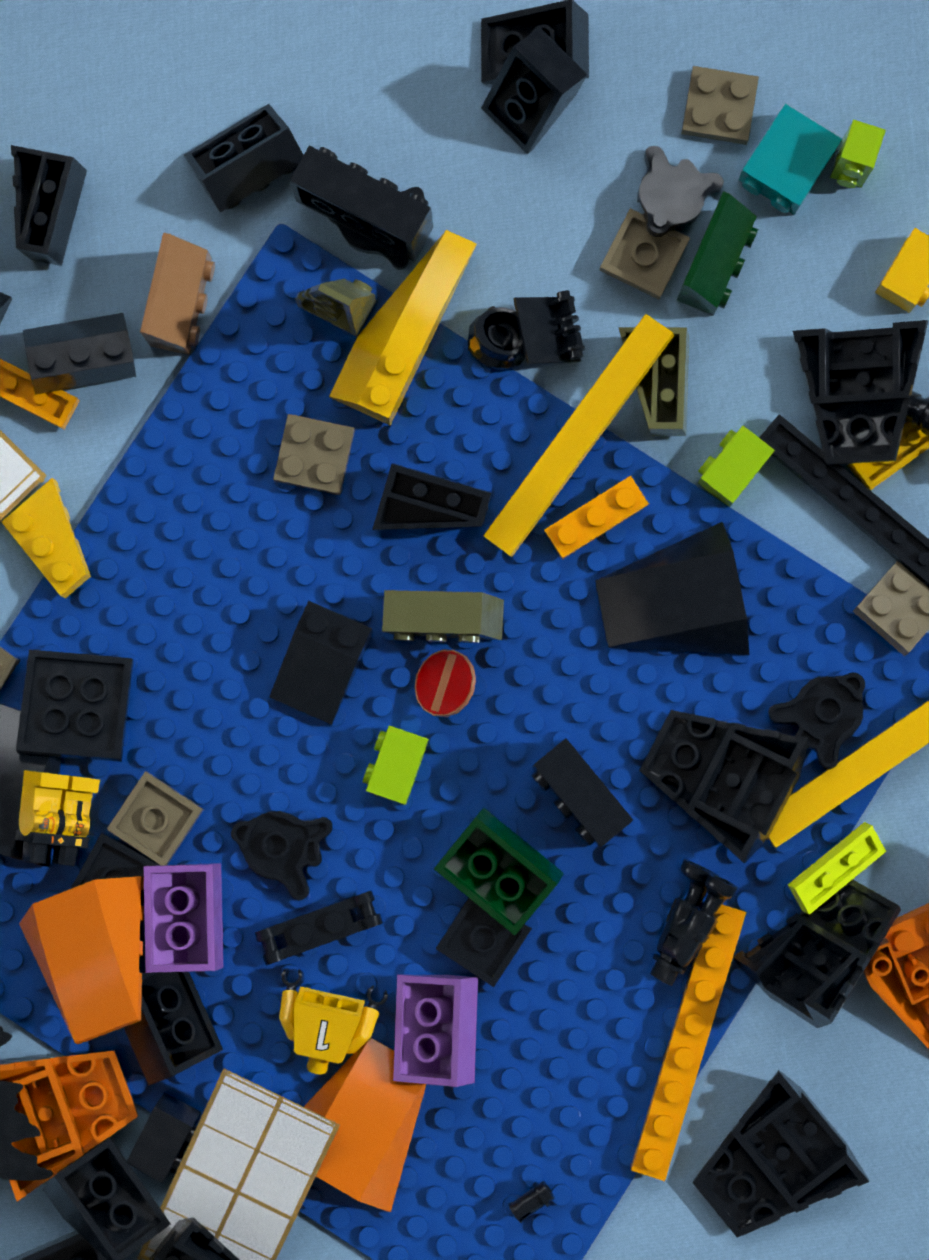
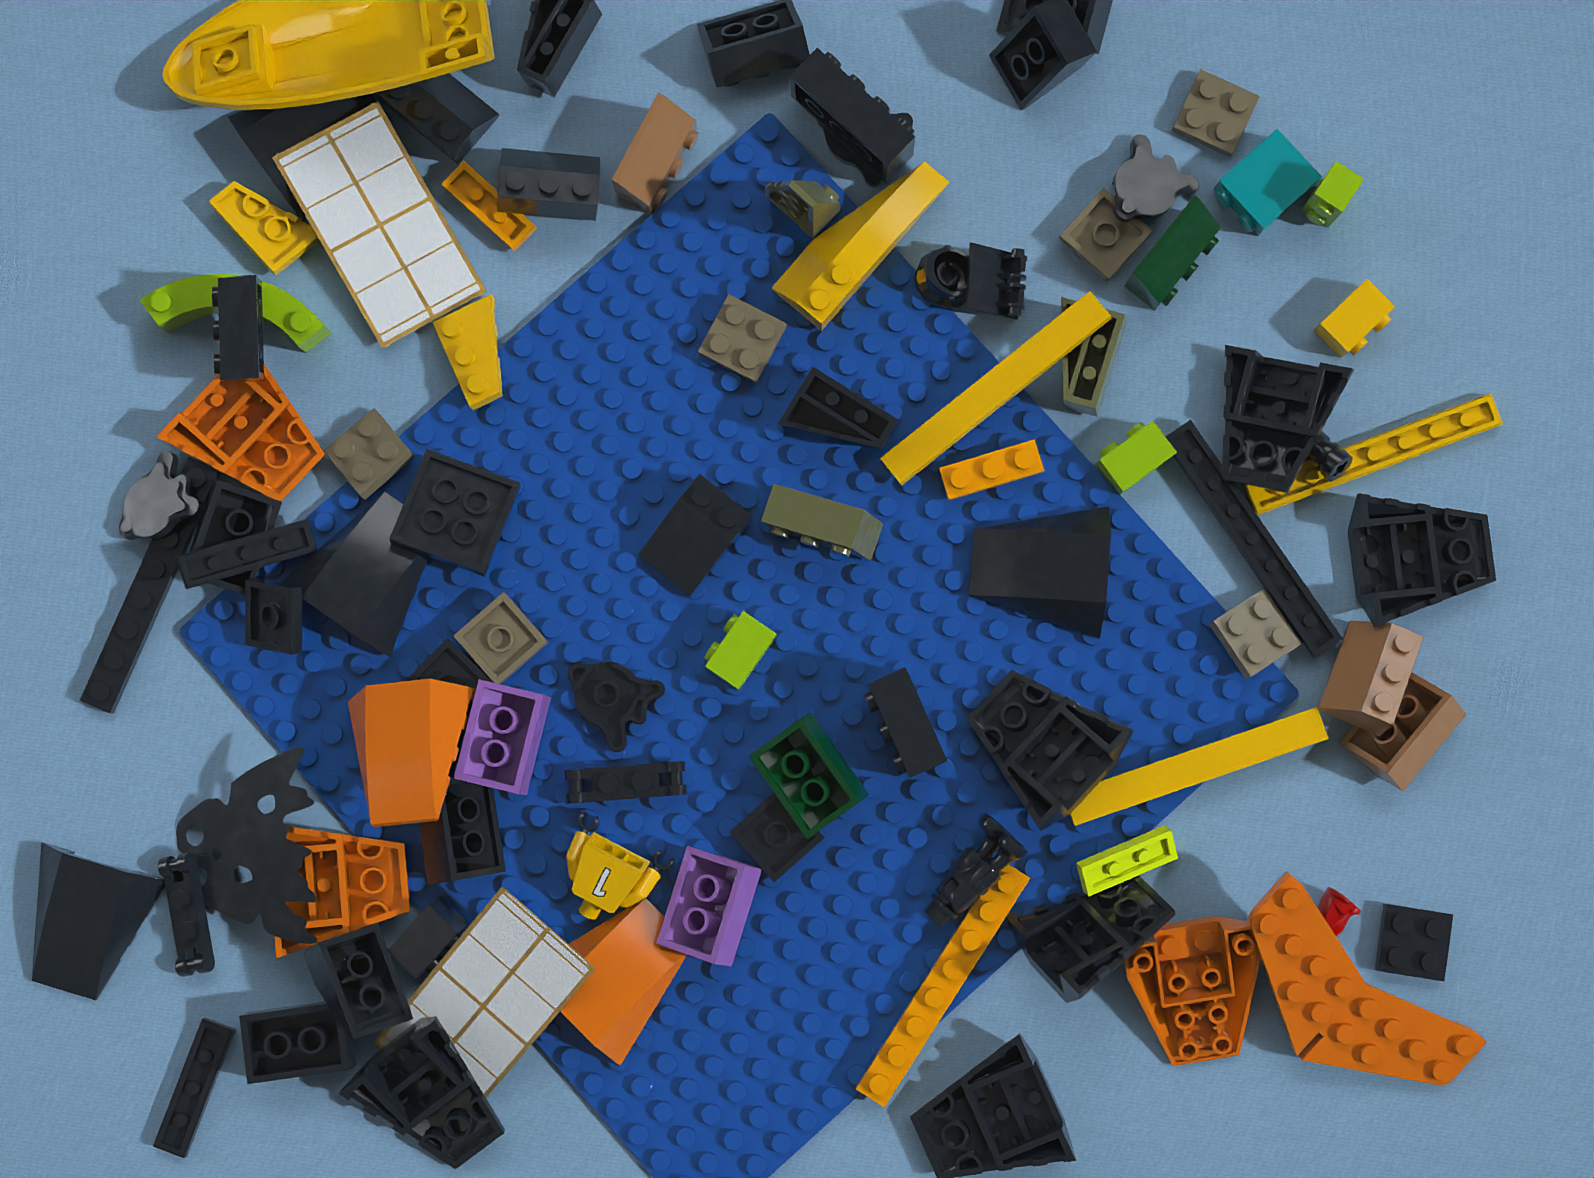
camera: 15 degrees right, 0 degrees up
(56, 814) = (410, 607): hips -> none
(445, 683) = (806, 586): red piece -> none
(531, 1201) = (755, 1092): black pin -> none
(826, 713) = (1157, 713): black tile -> none

